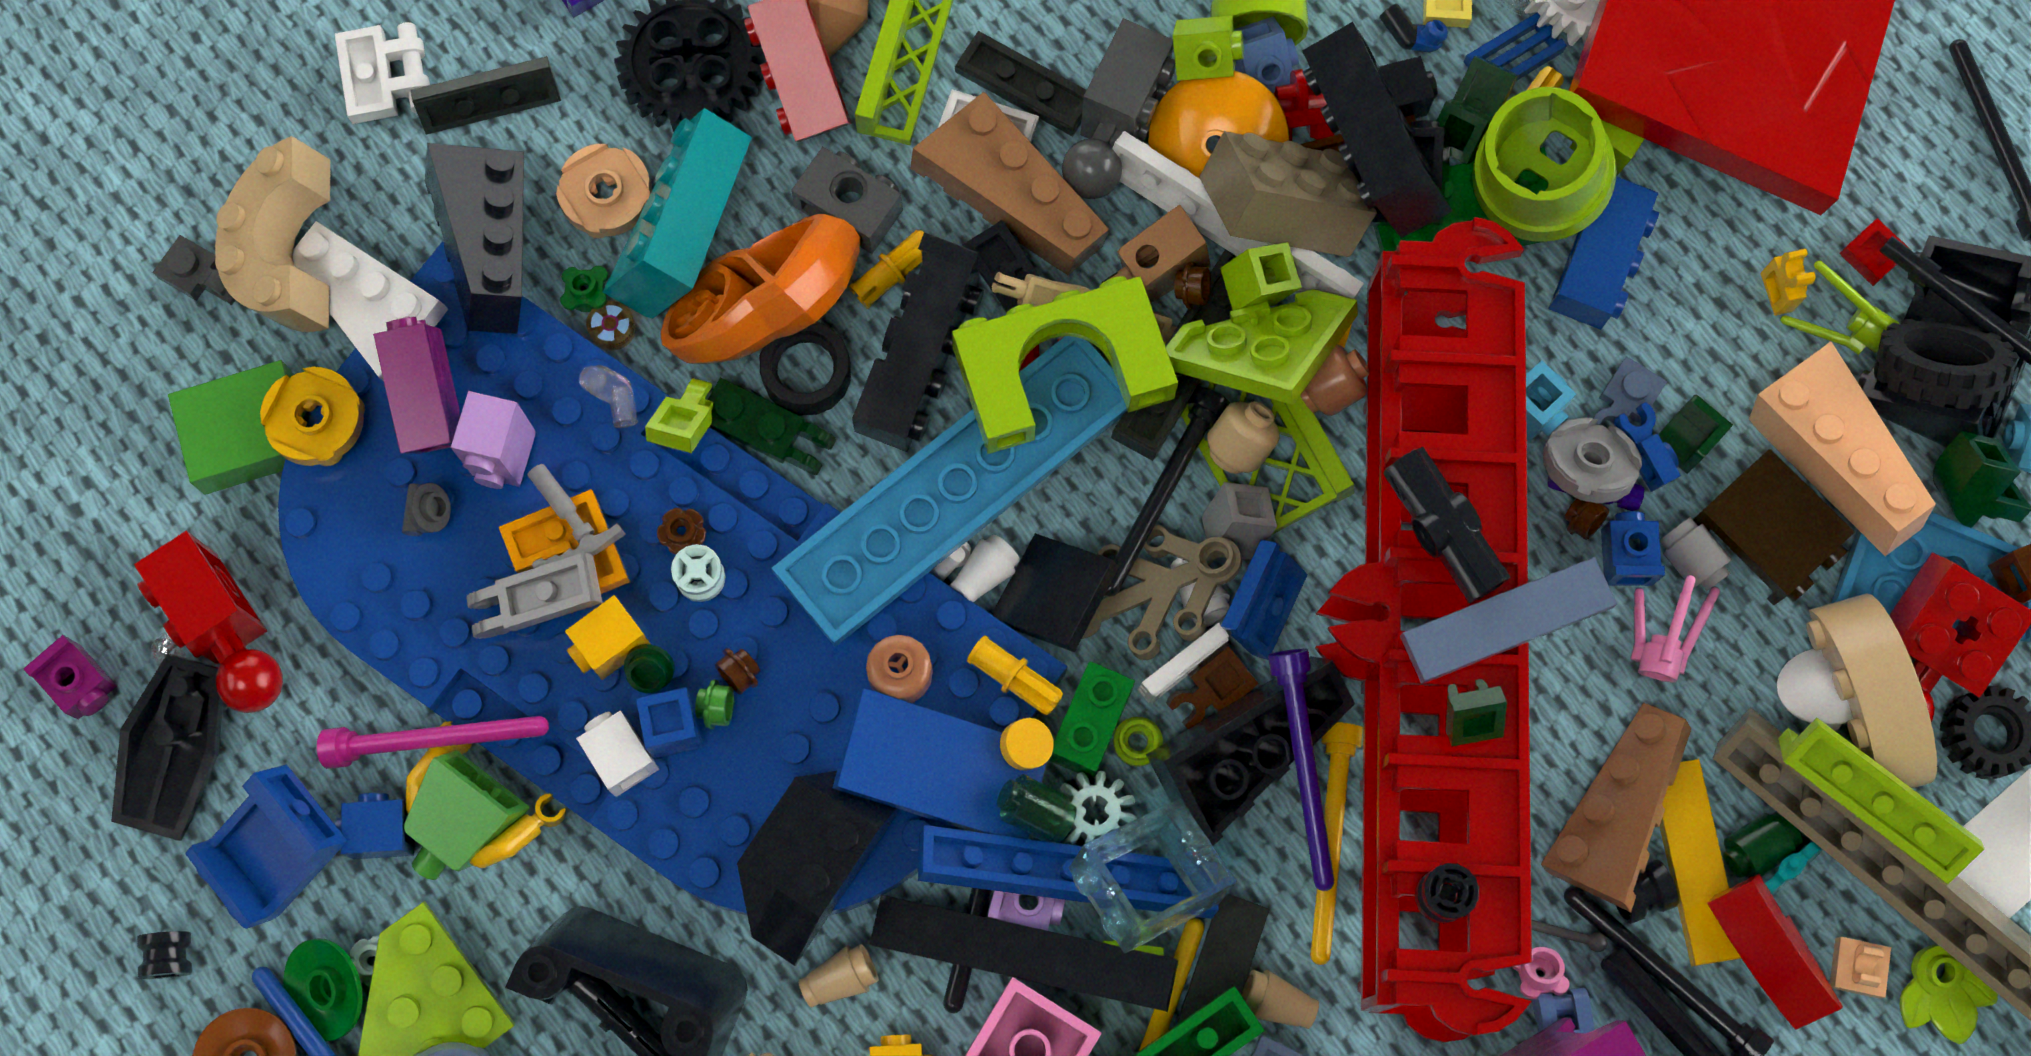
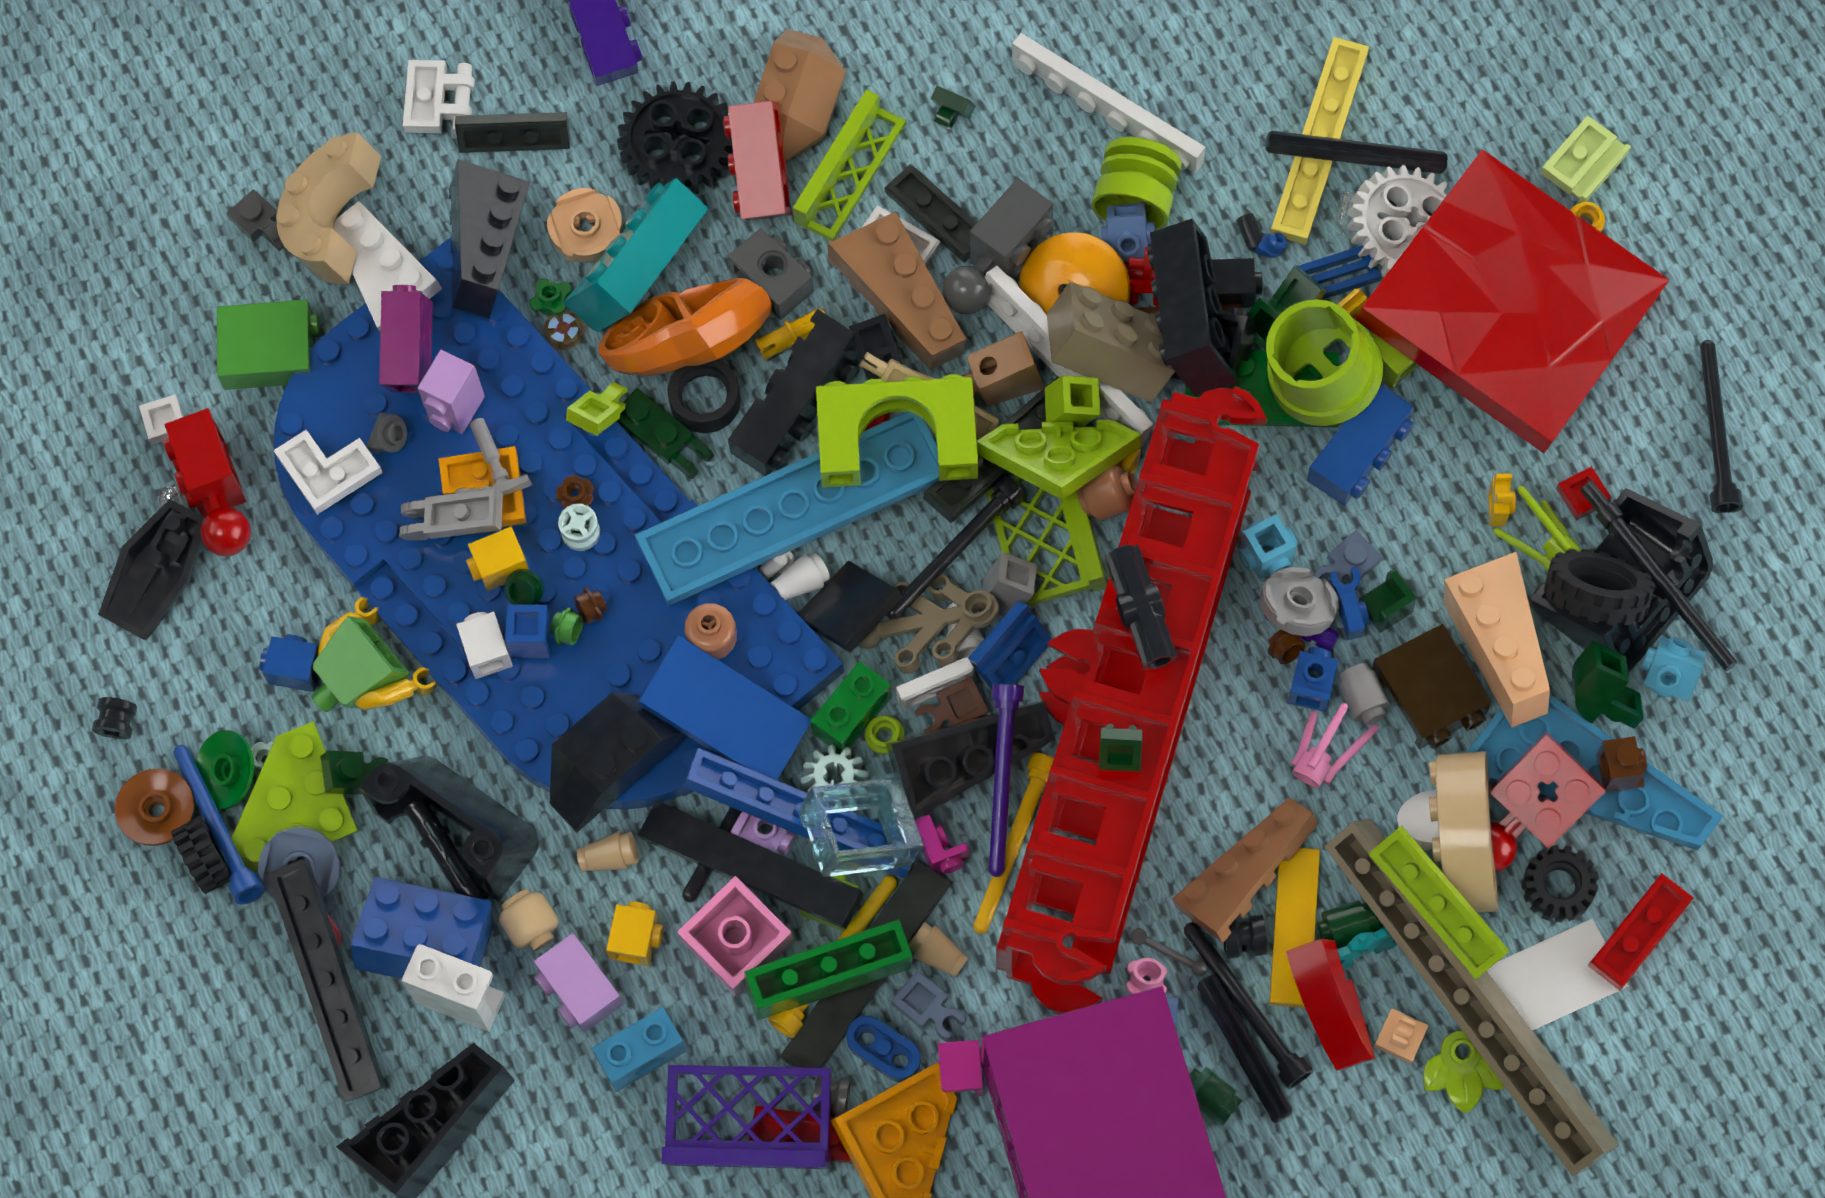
camera: 20 degrees right, 5 degrees down
(60, 662) = (87, 489): magenta brick -> none
(130, 546) = (158, 413): none -> white plate
(267, 848) = (209, 656): blue panel -> none
(324, 441) = (326, 366): yellow plate -> none
(341, 746) = (281, 598): dark pink piece -> none
(359, 586) = (322, 478): none -> white plate
(484, 956) = (346, 771): none -> dark green plate
(613, 389) = (551, 376): clear arm -> none
(1015, 675) = (798, 657): yellow axle -> none
(1026, 744) = (793, 709): yellow tile -> none
(1036, 808) = (786, 757): clear green brick -> none
(1193, 285) = (1020, 396): reddish brown plate -> none
(1206, 47) = (1077, 214): lime brick -> none
(1240, 863) = (934, 842): none -> dark pink bracket
(1243, 437) = (1026, 520): tan head -> none
(1437, 899) = (1061, 879): black wheel -> none
(1508, 620) = (1169, 688): sand blue tile -> none

